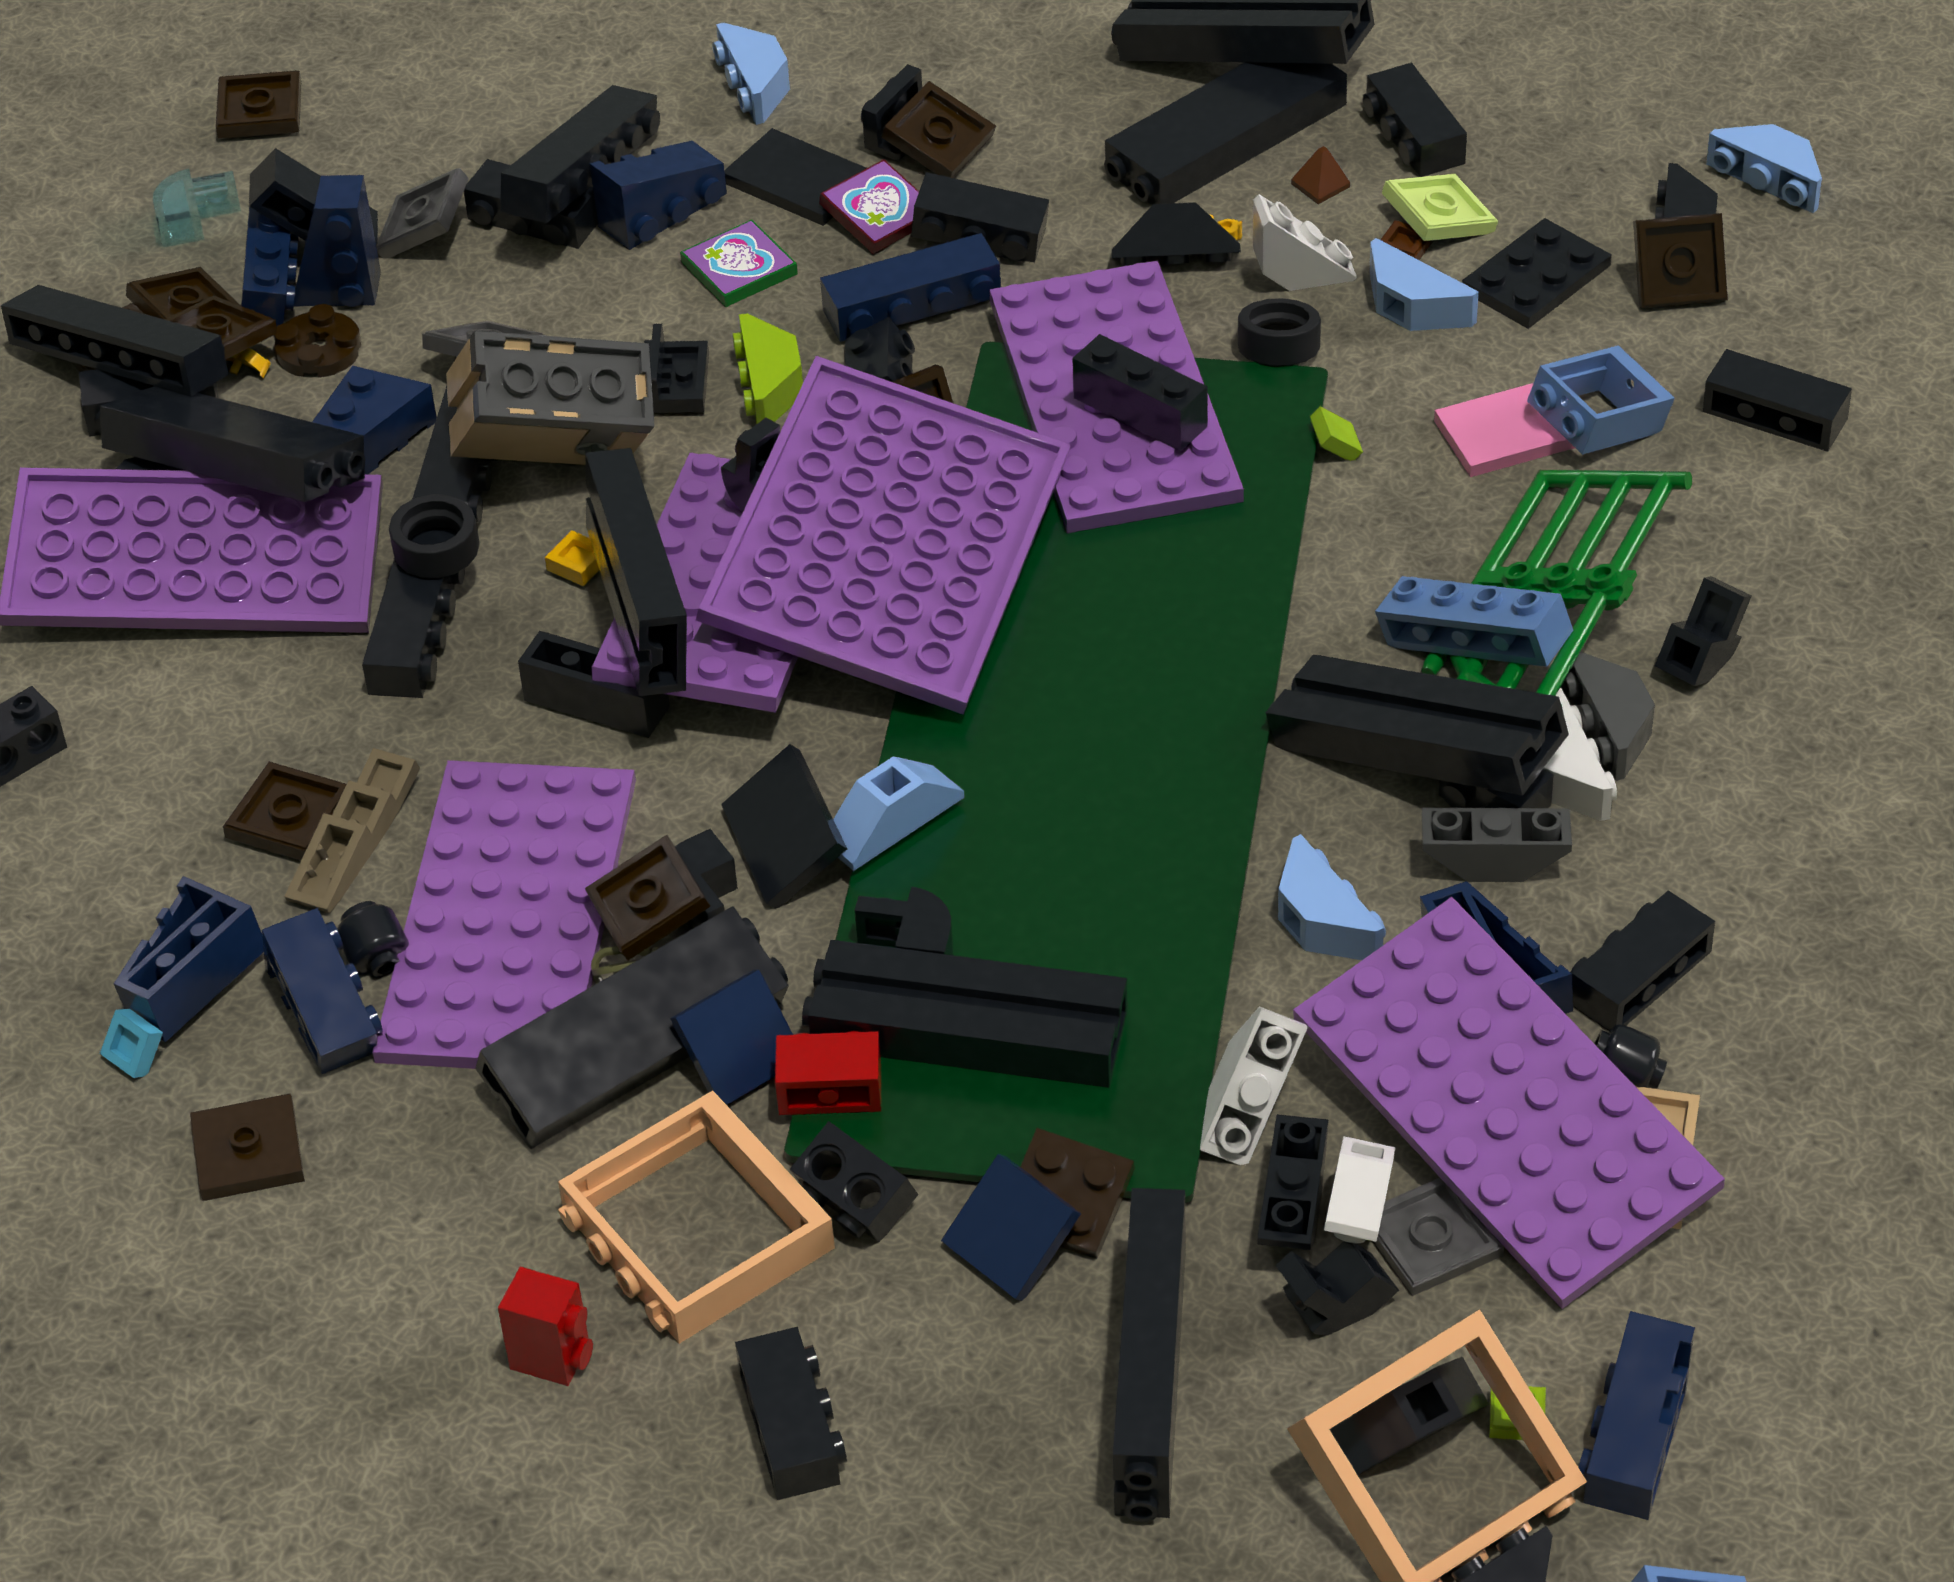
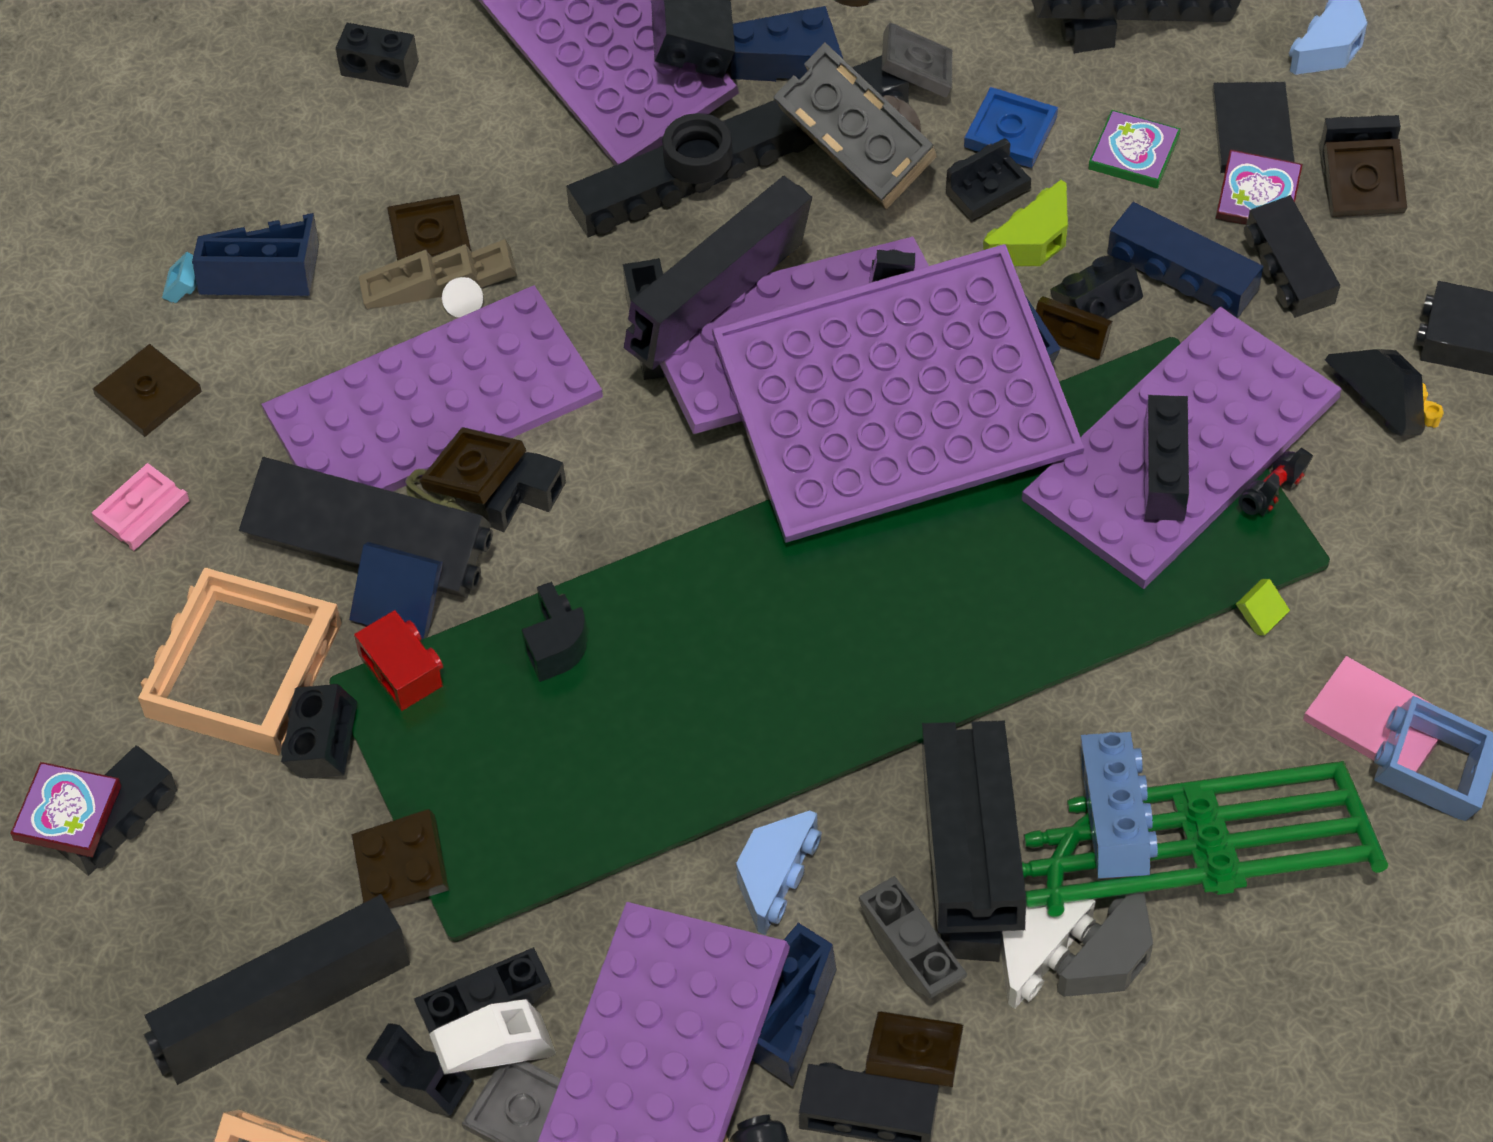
camera: 55 degrees right, 10 degrees up
(321, 990) = (279, 343): dark blue wedge -> none
(372, 938) = (349, 342): black head -> none
(403, 823) = (462, 296): none -> white sticker
(404, 1218) = (140, 506): none -> bright pink plate
(545, 1326) = (82, 633): red brick -> none
(626, 317) = (1012, 117): none -> blue plate
(654, 190) = (1152, 58): dark blue wedge -> none
(769, 1435) = (66, 809): none -> tile
(783, 826) = (603, 502): black tile -> none
(890, 806) = (660, 552): light blue slope -> none
(972, 1011) = (508, 711): black brick -> none
(1010, 1227) = (341, 845): dark blue tile -> none
(1219, 350) = (1287, 471): none -> black piece
(1249, 1084) = (550, 917): white slope -> none
(1279, 332) = (1329, 527): black tyre -> none
(1296, 251) = (1431, 469): white slope -> none
(1417, 293) = (1462, 570): light blue slope -> none
(1608, 896) = (914, 1049): none -> dark brown plate
(1708, 637) = (1236, 973): black brick -> none

